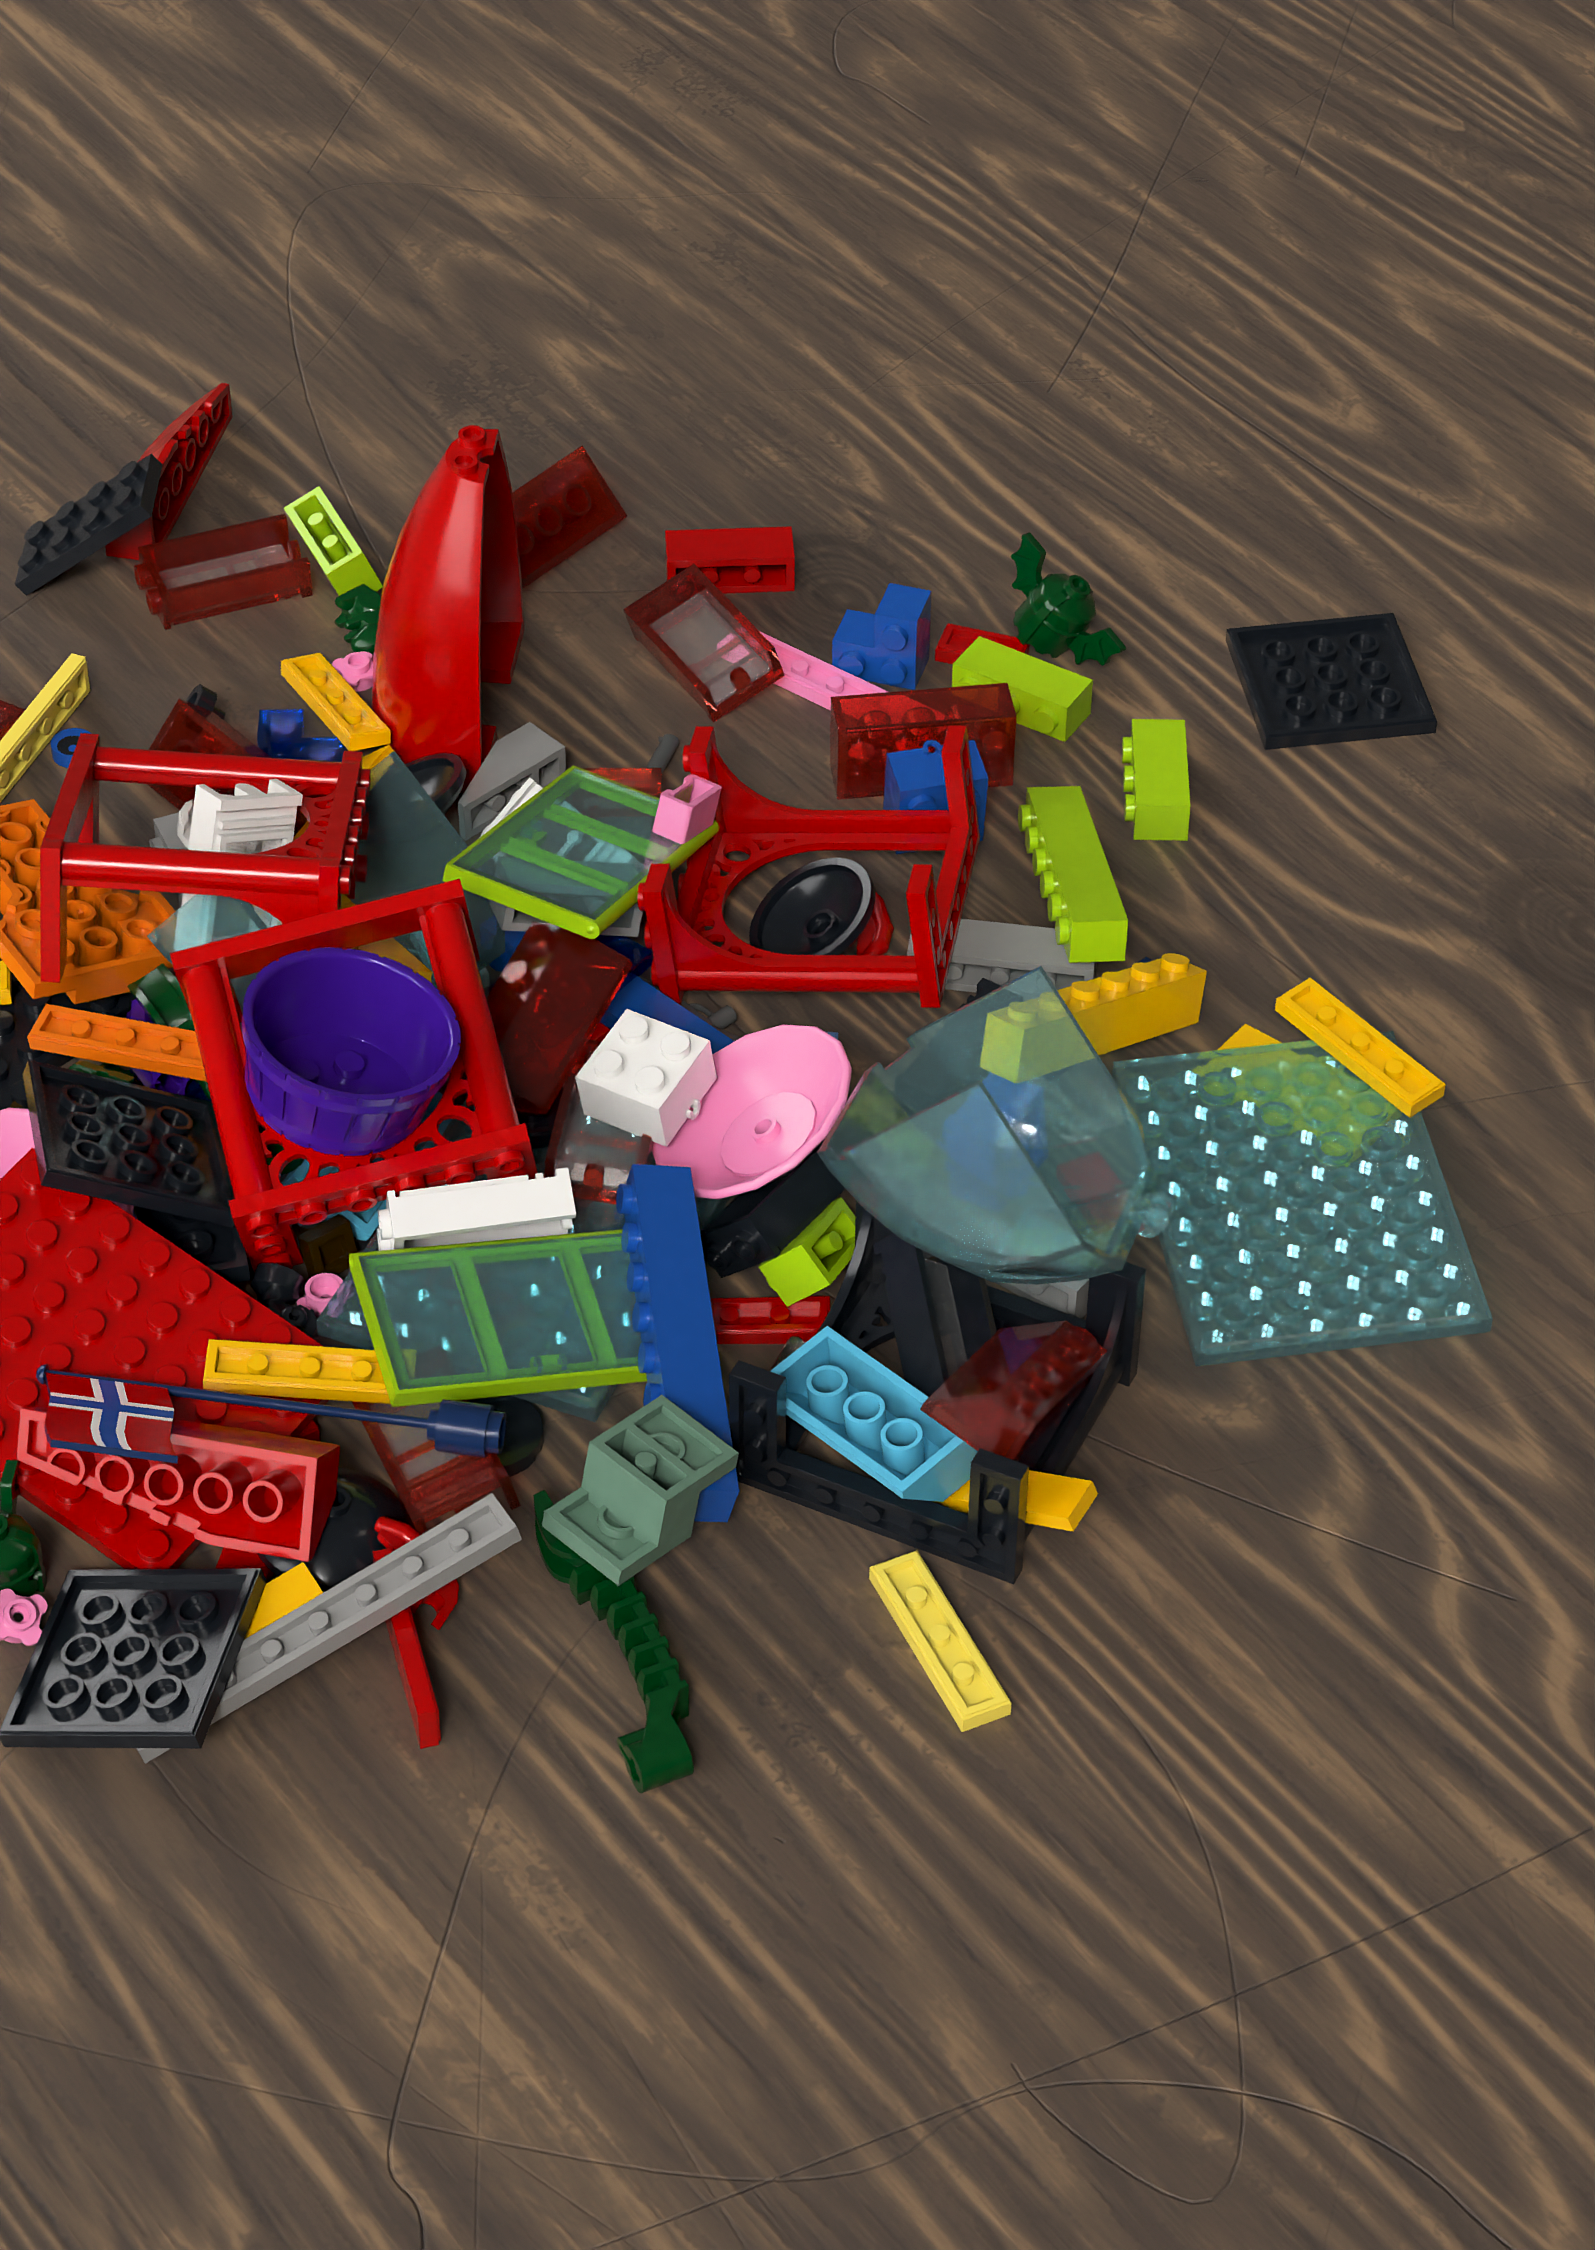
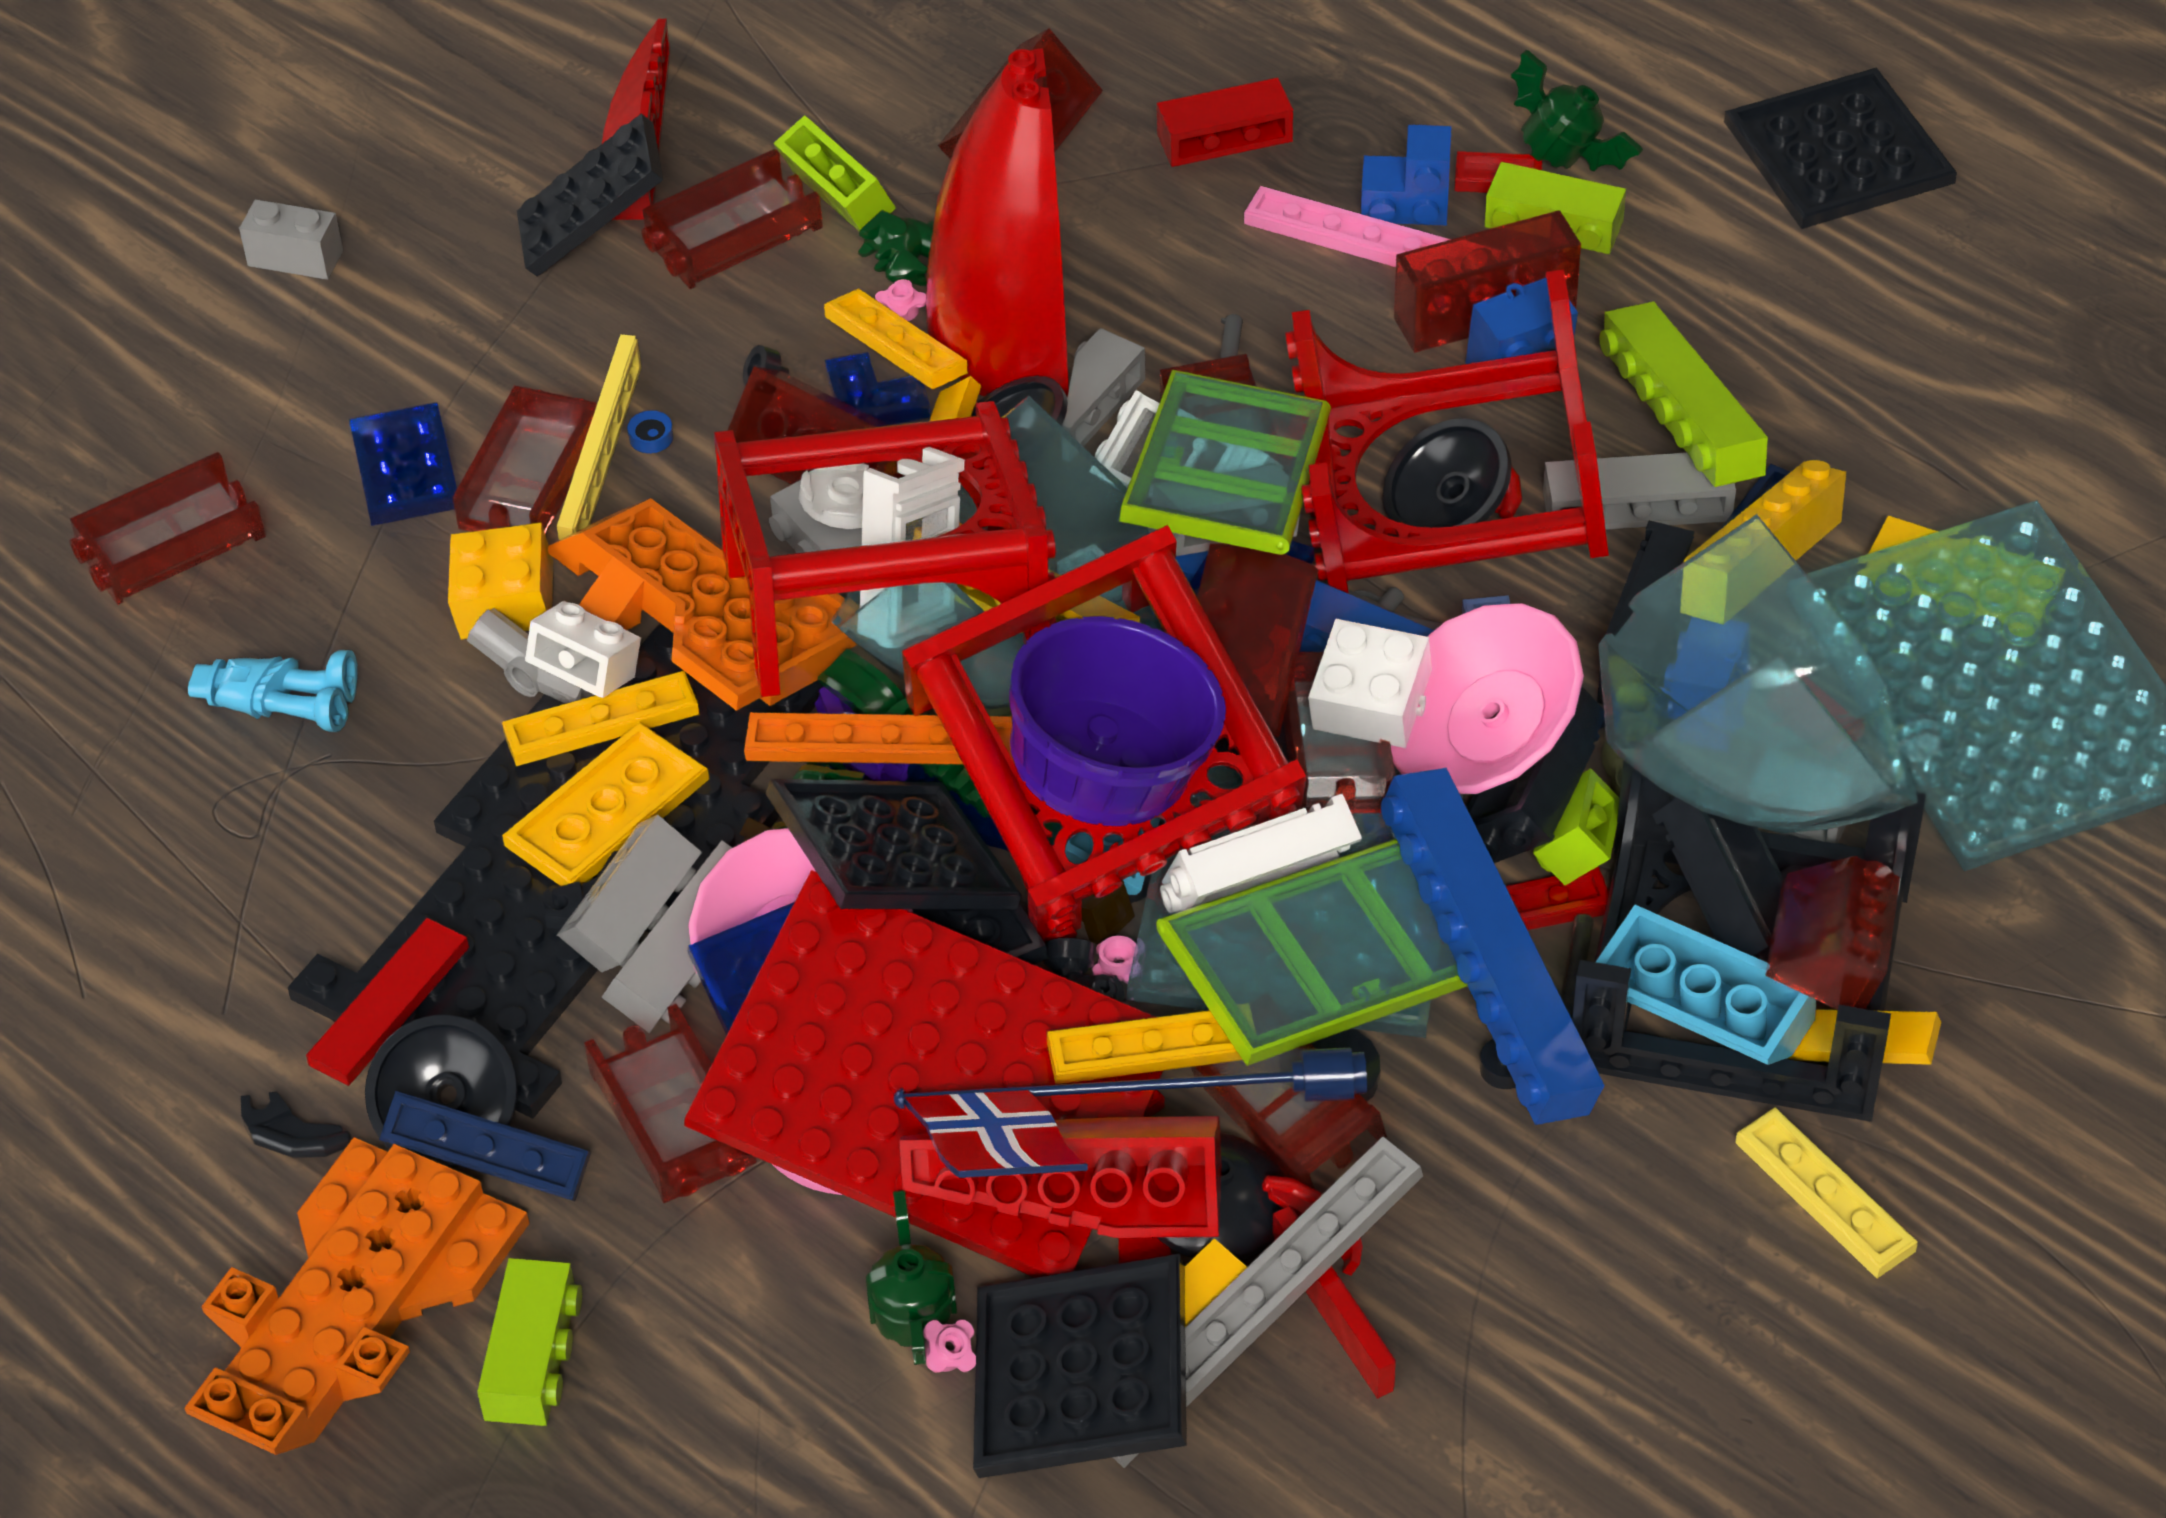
camera: 10 degrees left, 5 degrees up
(640, 1489) = (1516, 1104): sand green bracket -> none
(659, 1750) = (1609, 1355): dark green piece -> none
(687, 809) = (1306, 398): bright pink piece -> none
(704, 642) = (1235, 213): door -> none
(1156, 779) = (1718, 279): lime brick -> none
(1360, 1047) = (2014, 523): yellow tile -> none

